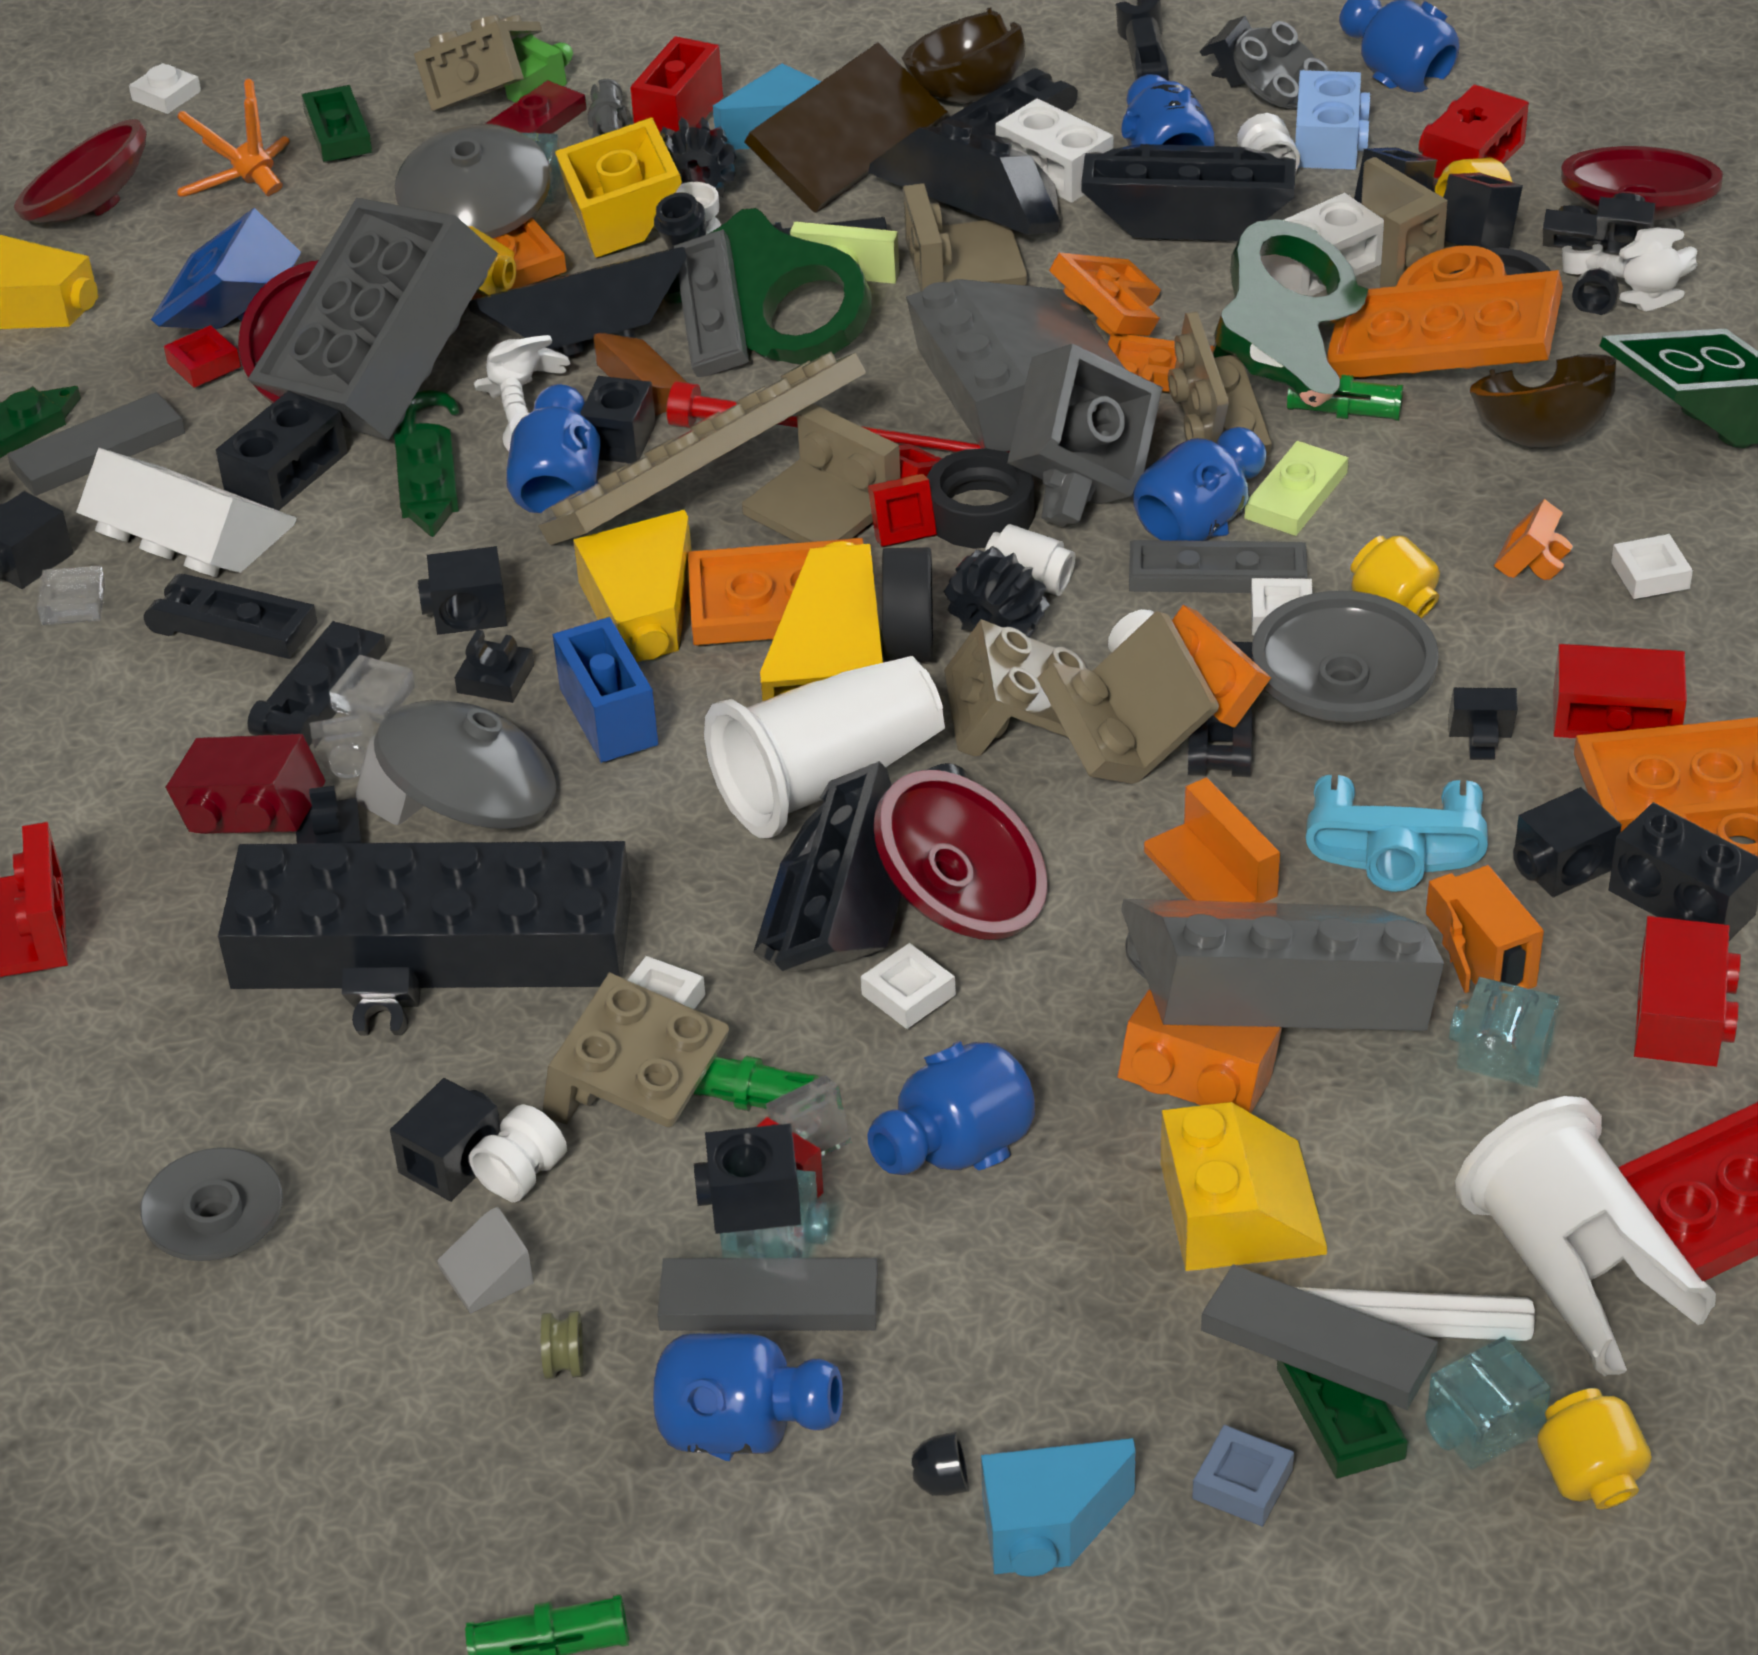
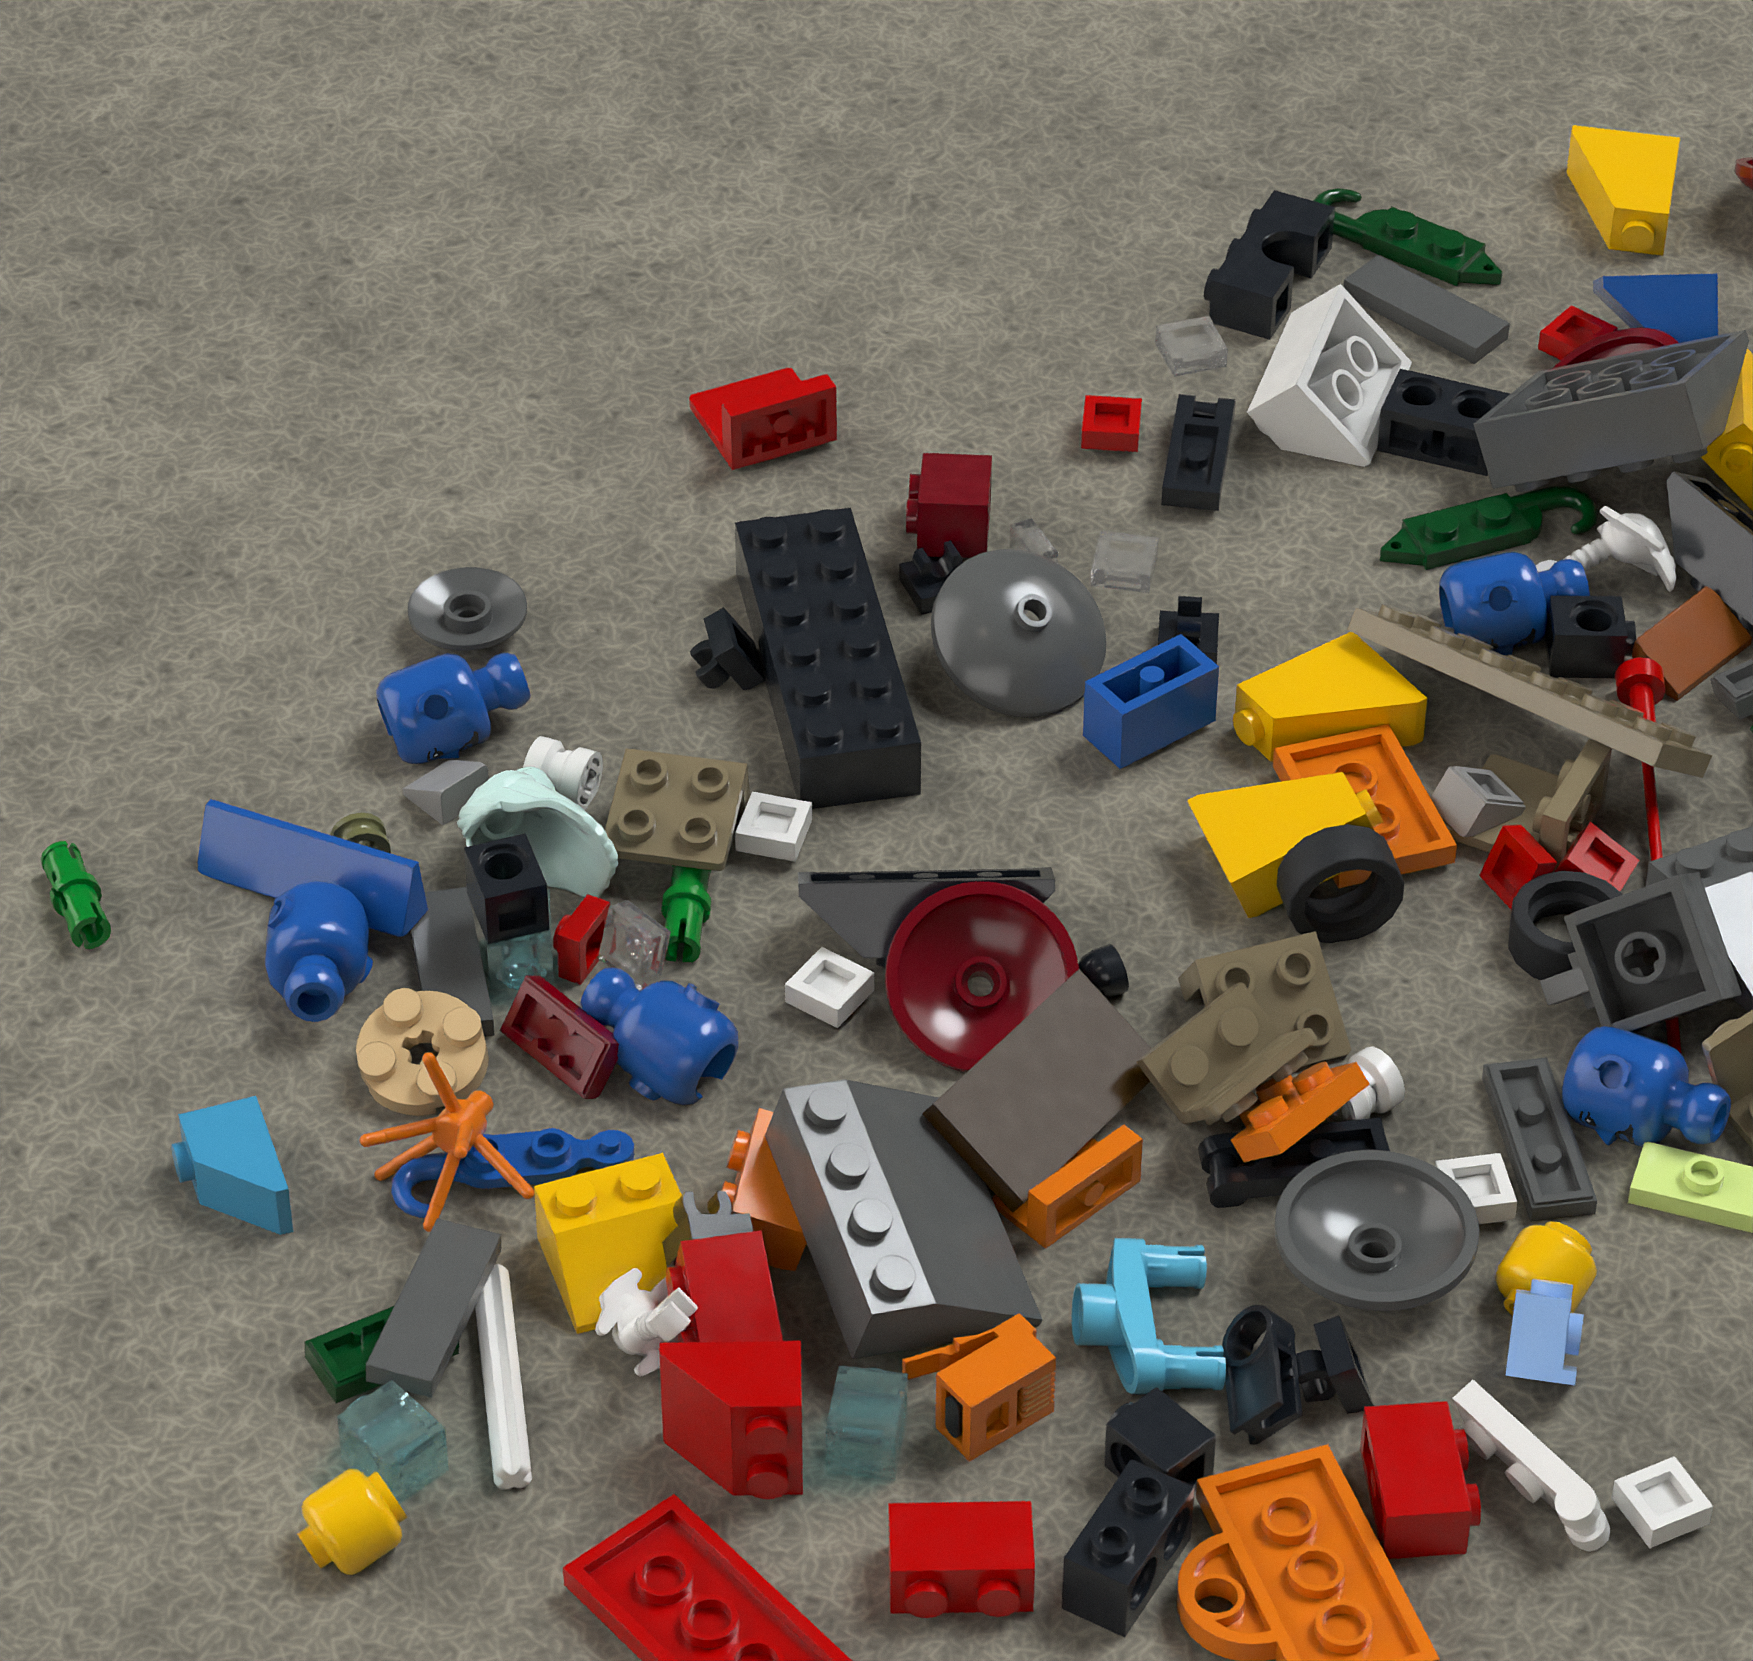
camera: 75 degrees right, 0 degrees up
(159, 667) = (1111, 423): none -> red plate
(305, 691) = (1078, 523): black plate -> none
(372, 1234) = (445, 705): none -> blue piece
(439, 1134) = (570, 716): black brick -> none
(464, 590) = (1280, 588): black brick -> none
(594, 1392) = (278, 855): none -> blue slope
(625, 1171) = (563, 836): none -> light aqua hair
(793, 744) = (1109, 850): white piece -> none
(809, 517) = (1474, 800): none -> light grey slope
(920, 1284) = (414, 1019): none -> tan plate
(926, 1199) = (561, 1037): none -> dark red plate
(940, 1465) = (291, 1096): black hinge -> none
(996, 591) = (1380, 951): black gear -> none
(1046, 555) = (1475, 981): white brick -> none
(1076, 1286) = (455, 1132): none -> orange plant
(1087, 1273) = (535, 1155): none -> blue piece
(1122, 836) = (1042, 1090): none -> tile
(1243, 1475) = (292, 1289): sand blue plate -> none
(1279, 1090) = (695, 1225): none -> tile
(1358, 1185) = (643, 1318): none -> white piece
(1368, 1100) = (729, 1285): none -> red brick
(1479, 585) = (1544, 1333): none -> light blue brick
(1500, 764) = (1263, 1384): none -> black piece
(1527, 1062) = (736, 1413): none -> red slope
(1535, 544) = (1662, 1386): orange tile -> none
(1575, 1218) = (582, 1476): white piece -> none
(1617, 620) = (1532, 1466): none -> white plate

